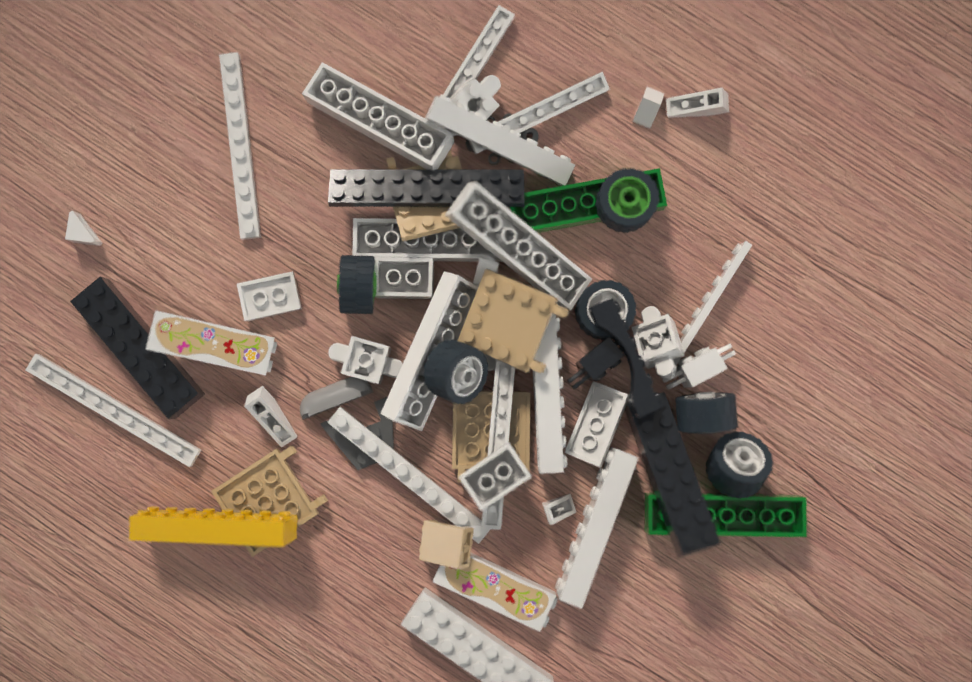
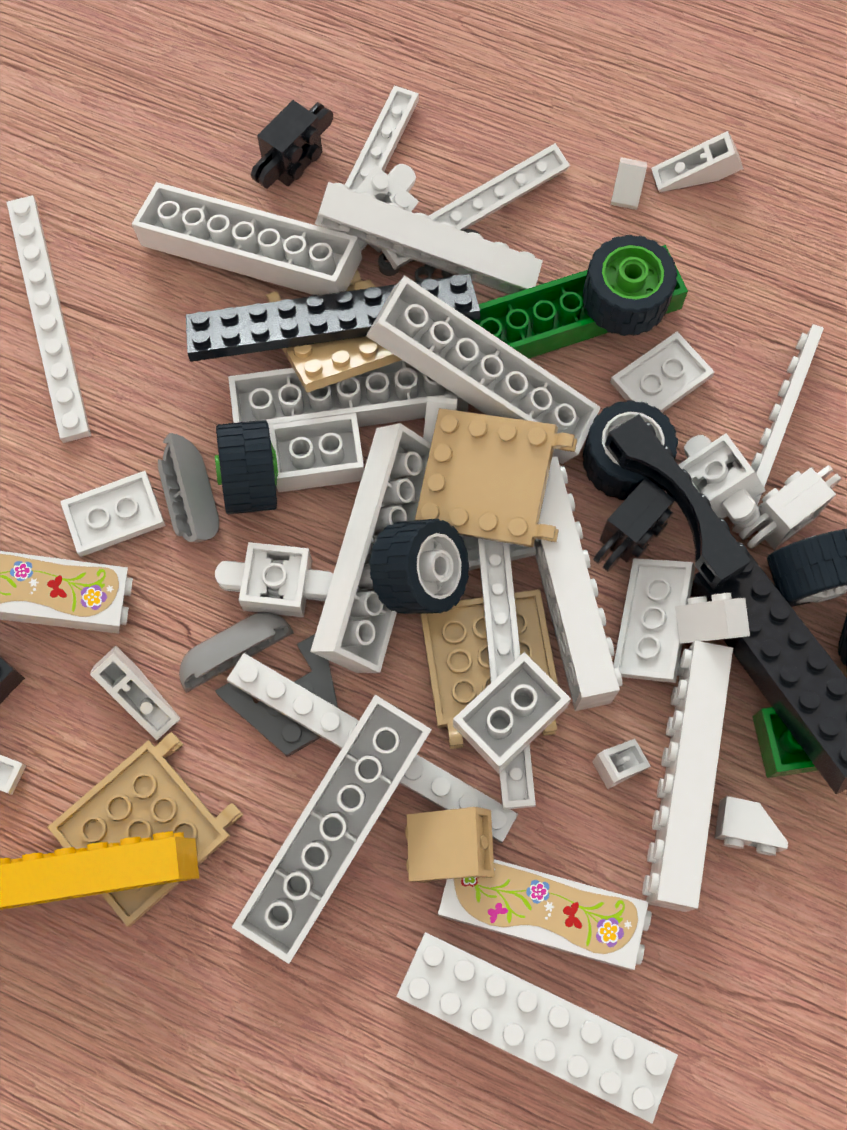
camera: 10 degrees left, 15 degrees down
(318, 289) = (187, 490): none -> light grey brick
(379, 523) = (331, 829): none -> white brick
(419, 44) = (290, 143): none -> black brick
(624, 557) = (748, 824): none -> white slope
(630, 437) = (713, 619): none -> white brick
(638, 258) = (663, 374): none -> white plate

